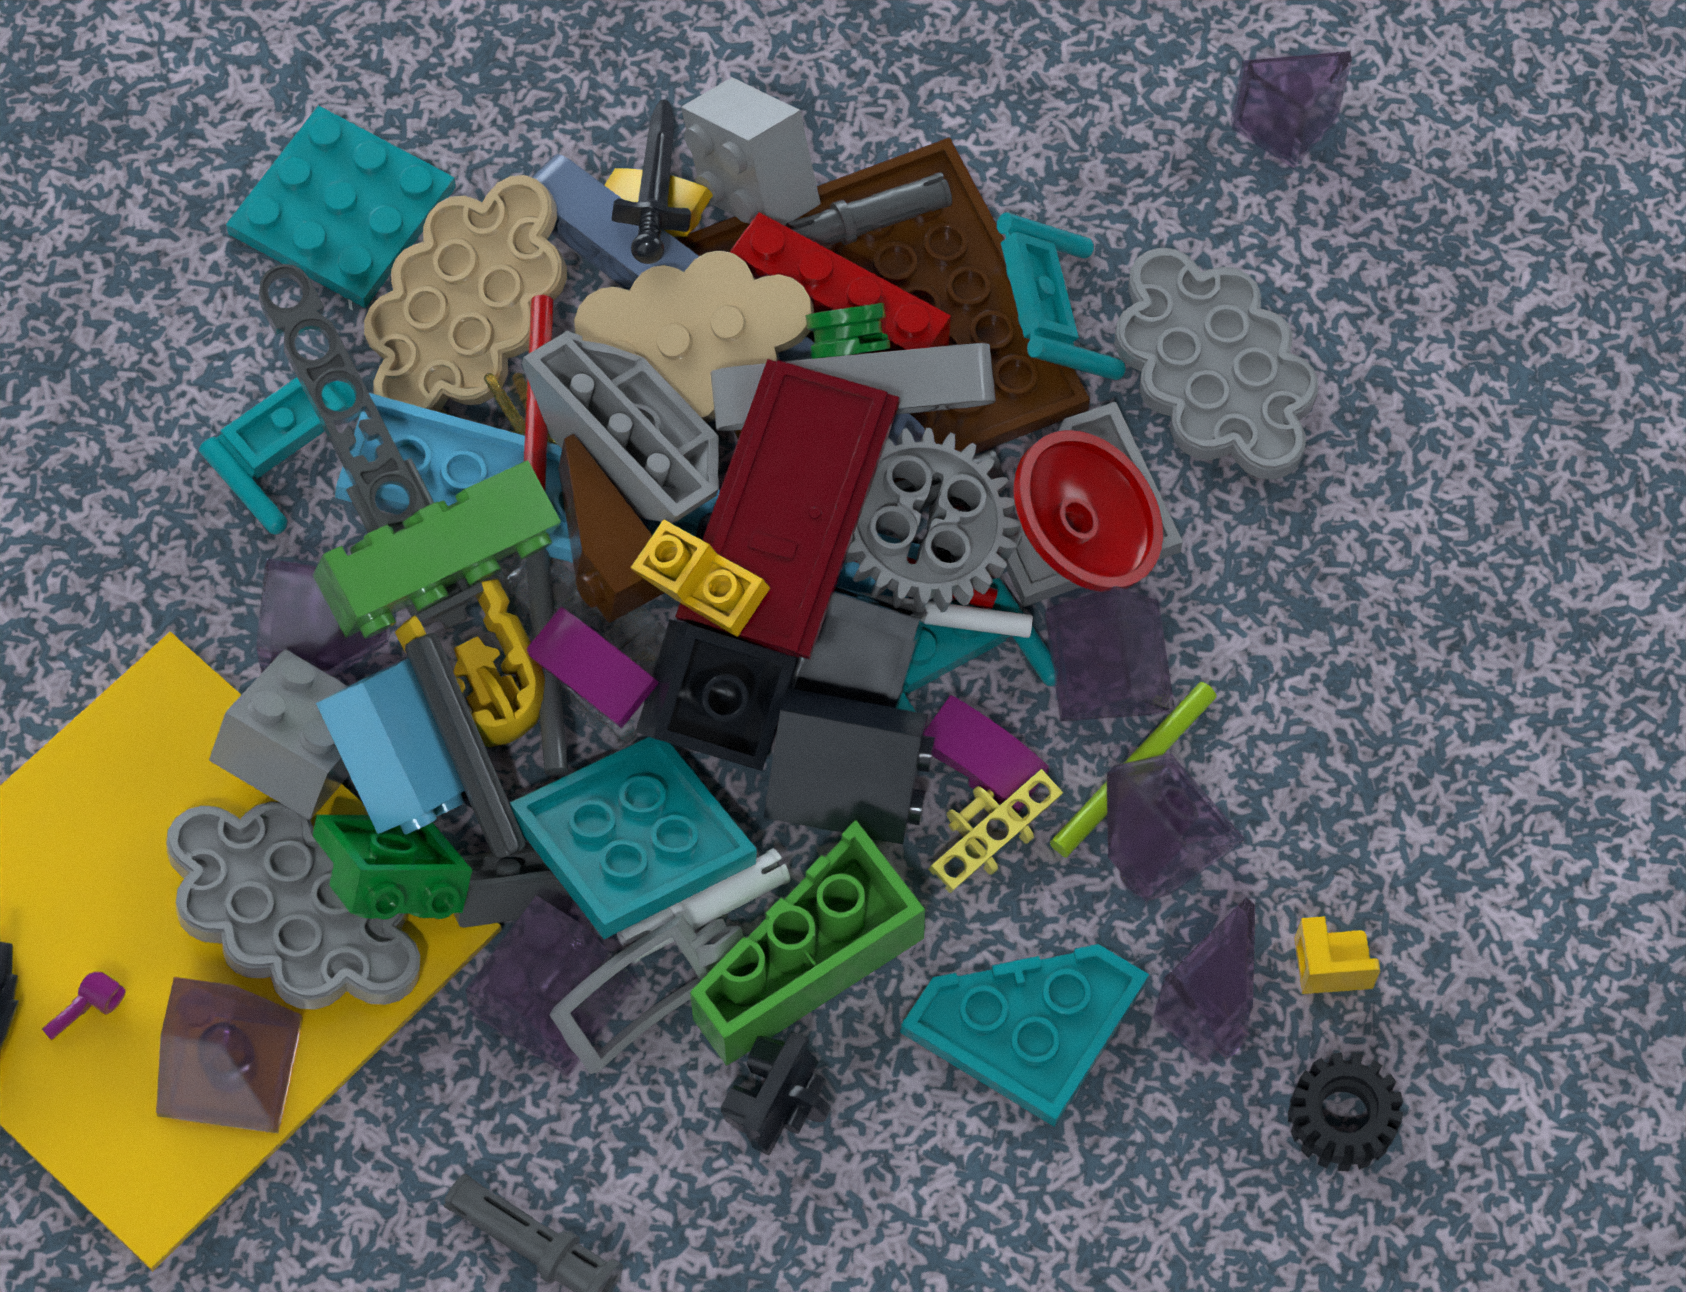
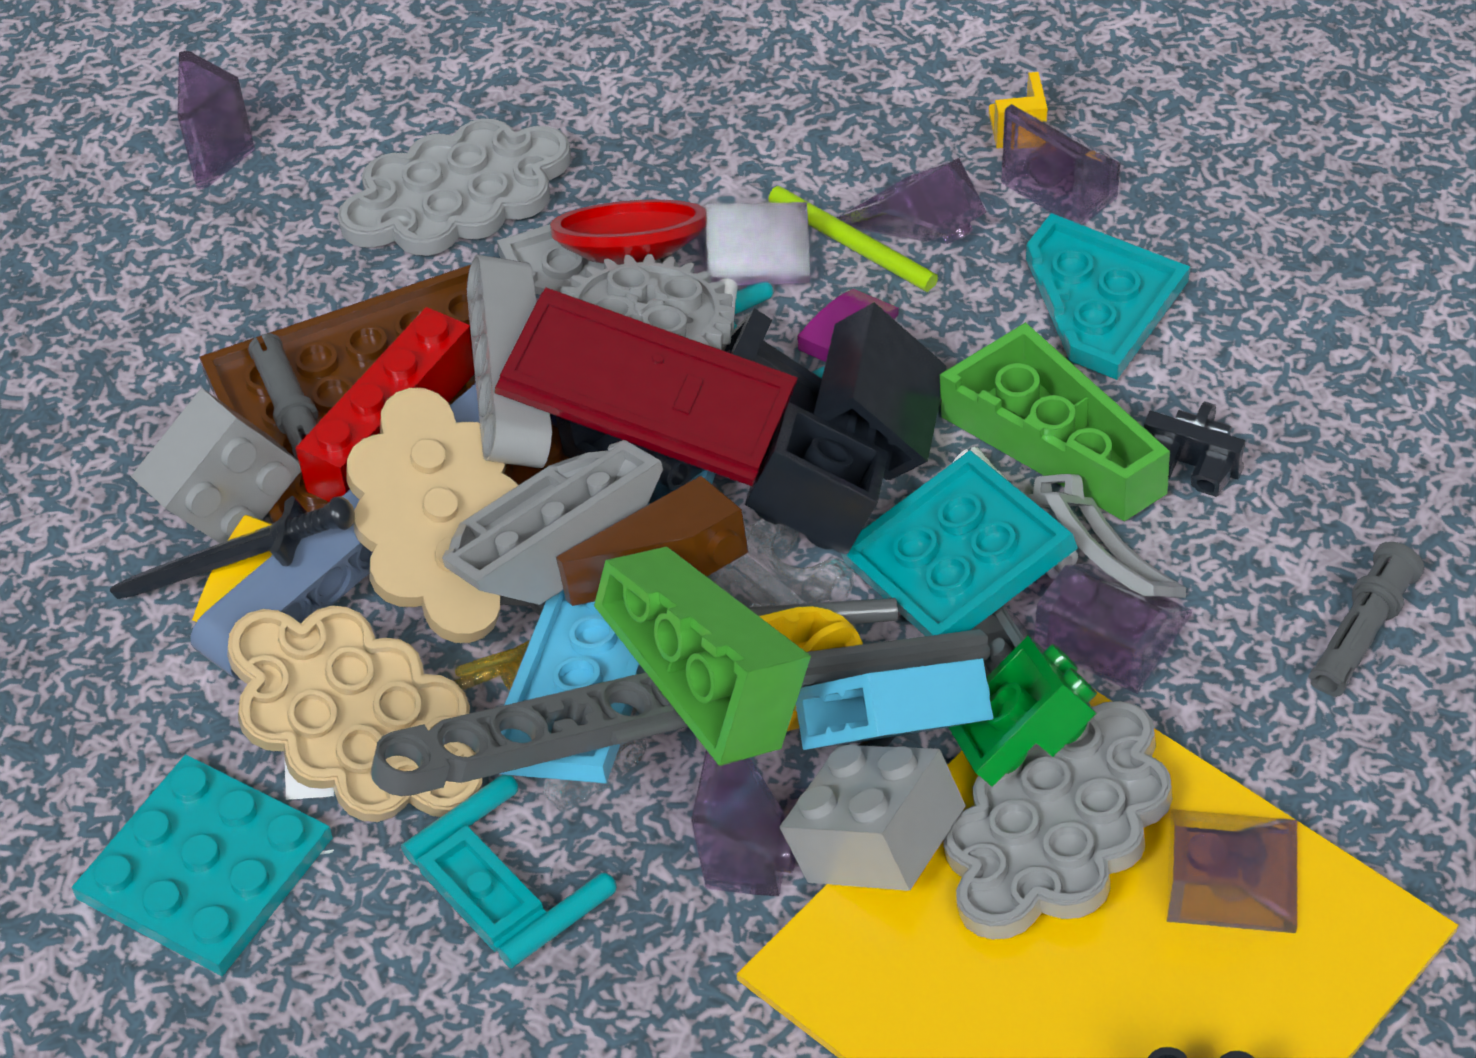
camera: 85 degrees left, 15 degrees down
(95, 990) = (1173, 993): magenta hand -> none
(535, 428) = (488, 615): red bar -> none
(591, 667) = (797, 560): magenta slope -> none
(700, 577) = (726, 442): yellow slope -> none
(848, 331) = (452, 357): green wheel -> none
(1002, 812) = (912, 305): light yellow piece -> none
(1043, 296) = (365, 280): teal plate -> none
(1360, 1081) = (1151, 126): black tyre -> none

